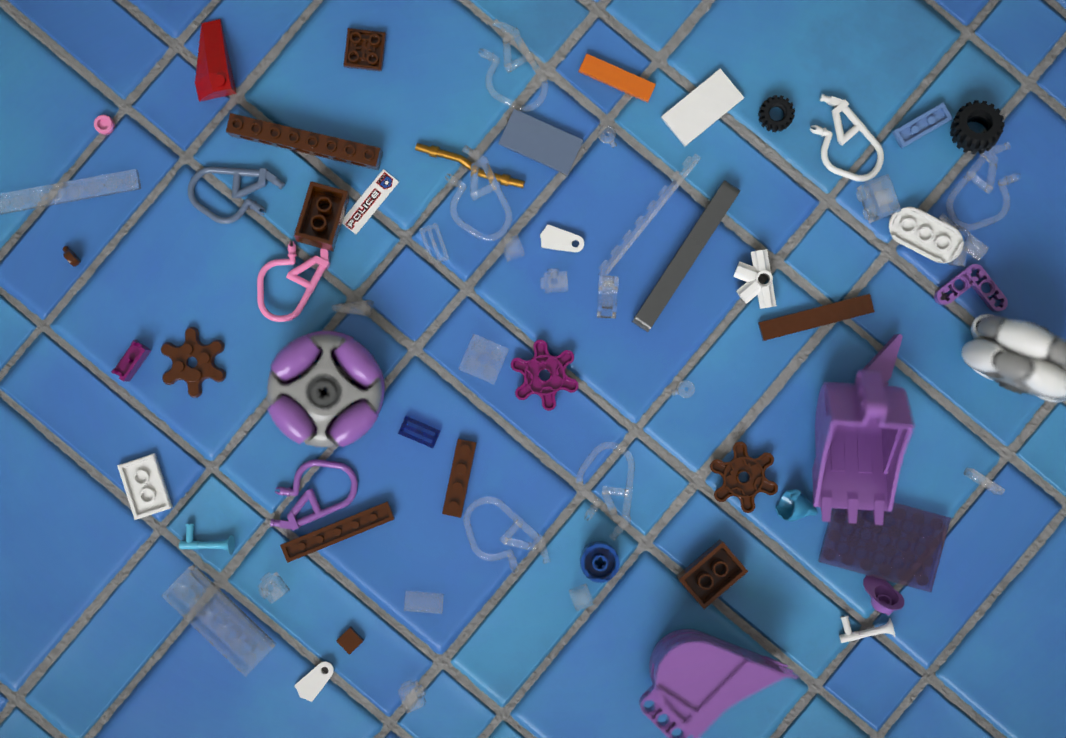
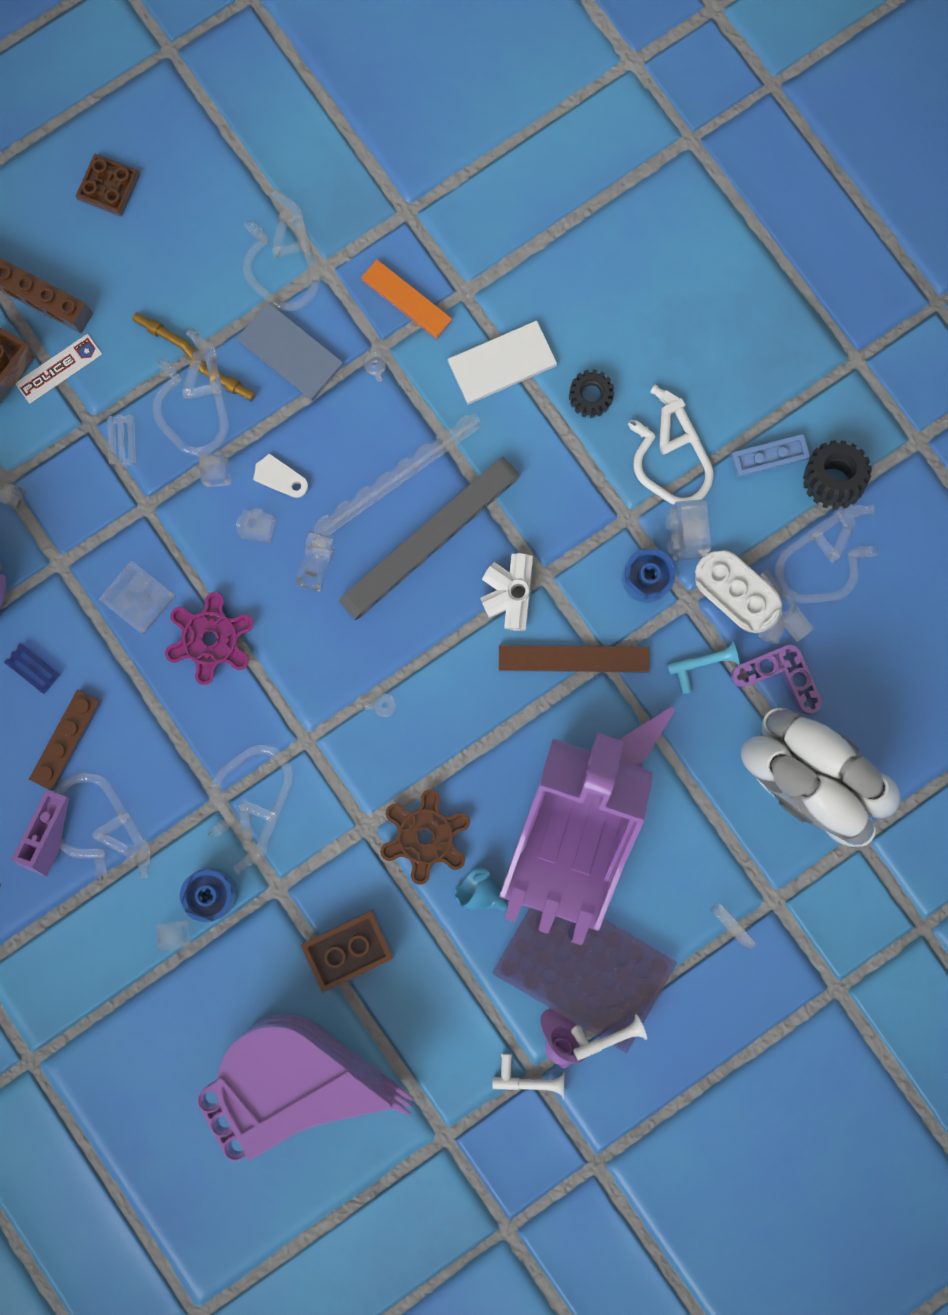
camera: 15 degrees right, 5 degrees down
(466, 550) = (43, 835): none -> medium lavender slope
(866, 236) = (644, 562): none -> blue brick
(897, 302) = (683, 666): none -> medium azure piece
(934, 574) = (586, 1049): none -> white piece

